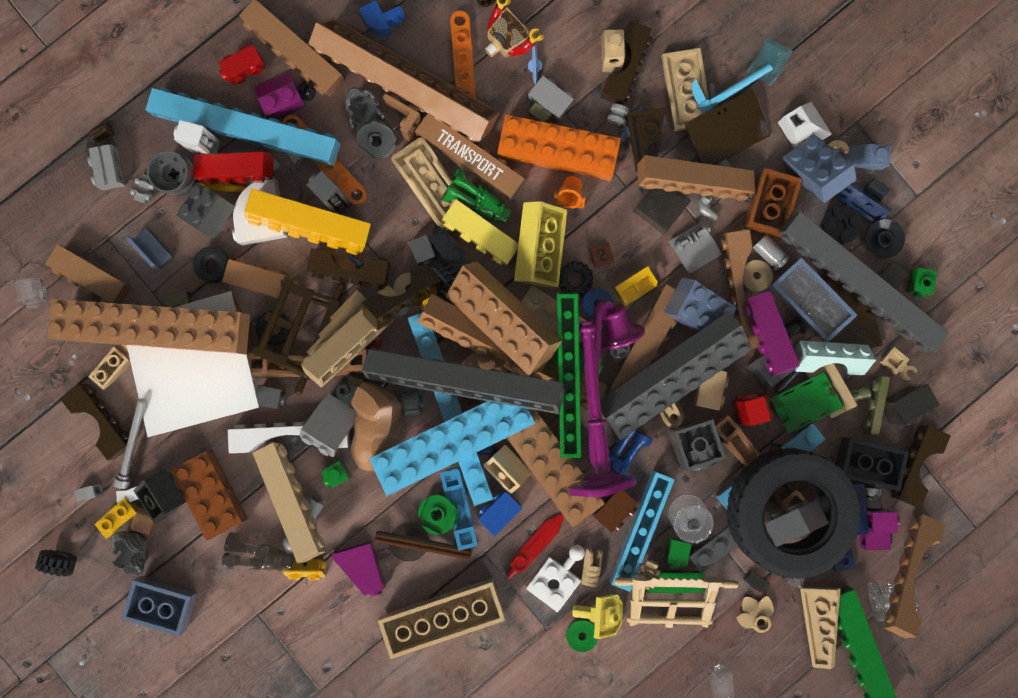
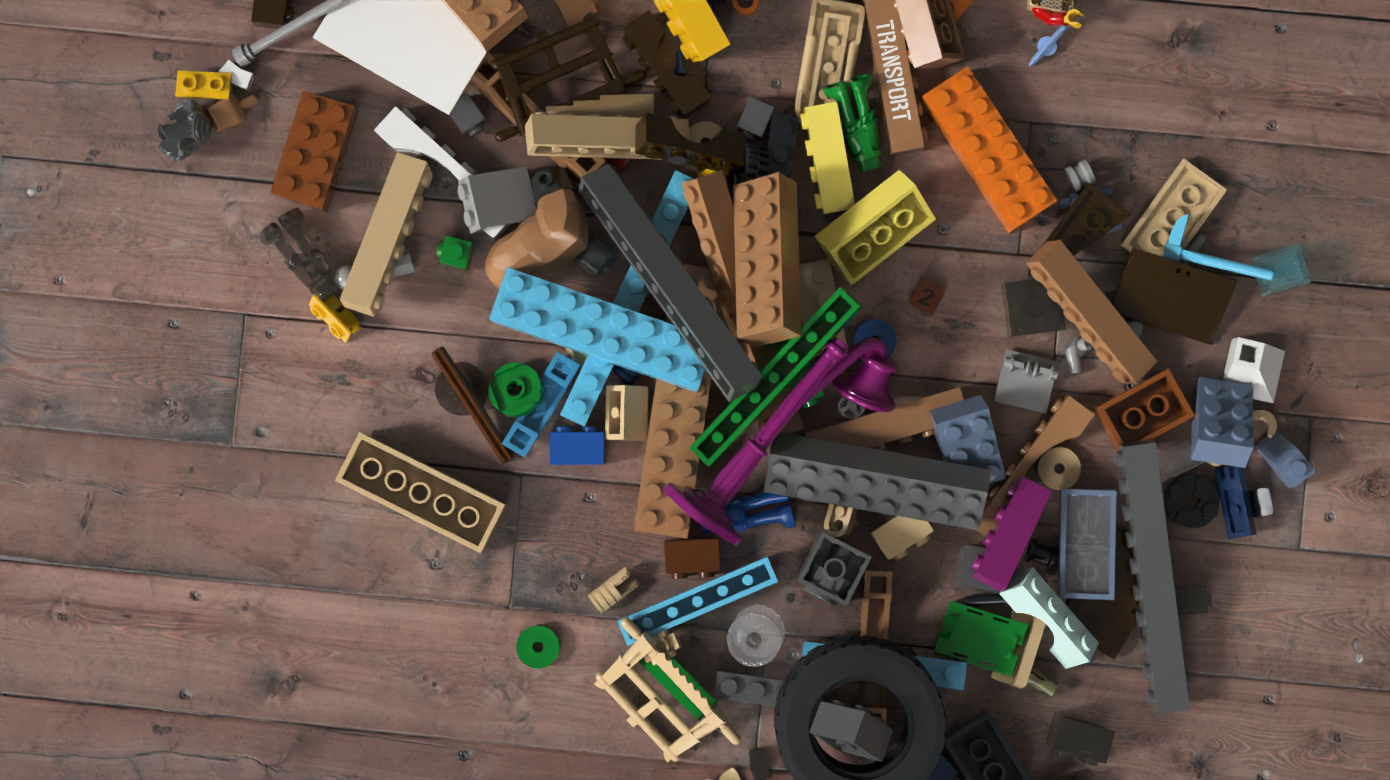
camera: 45 degrees right, 0 degrees up
(56, 562) = (105, 71): black tyre -> none
(88, 492) = (200, 34): light grey piece -> none
(159, 495) = (268, 105): pearl dark grey brick -> none
(159, 605) = (163, 210): sand blue brick -> none
(274, 340) = (527, 65): black tyre -> none
(362, 567) = (391, 368): magenta slope -> none
(535, 545) = (579, 515): red piece -> none
(540, 114) = (1004, 100): olive piece -> none
(551, 97) = (1030, 94): light grey brick -> none
(554, 570) = (577, 577): white plate -> none
(570, 194) = (955, 206): orange piece -> none
(583, 270) = (893, 291): black tyre -> none
(606, 615) = (581, 647): light yellow piece -> none
(612, 48) = (1137, 107): tan torso -> none
(617, 85) = (1108, 146): dark brown arch -> none
(636, 286) = (929, 361): yellow hinge -> none
(677, 553) = (710, 658): green brick -> none
(752, 408) = (925, 591): red wedge -> none
(771, 252) = (1095, 459): light grey piece -> none
(876, 405) = (1047, 710): olive plate -> none
(893, 235) = (1235, 559): black dish -> none
(896, 362) = (1111, 688): tan plate -> none
(921, 282) = (1214, 636): green brick -> none

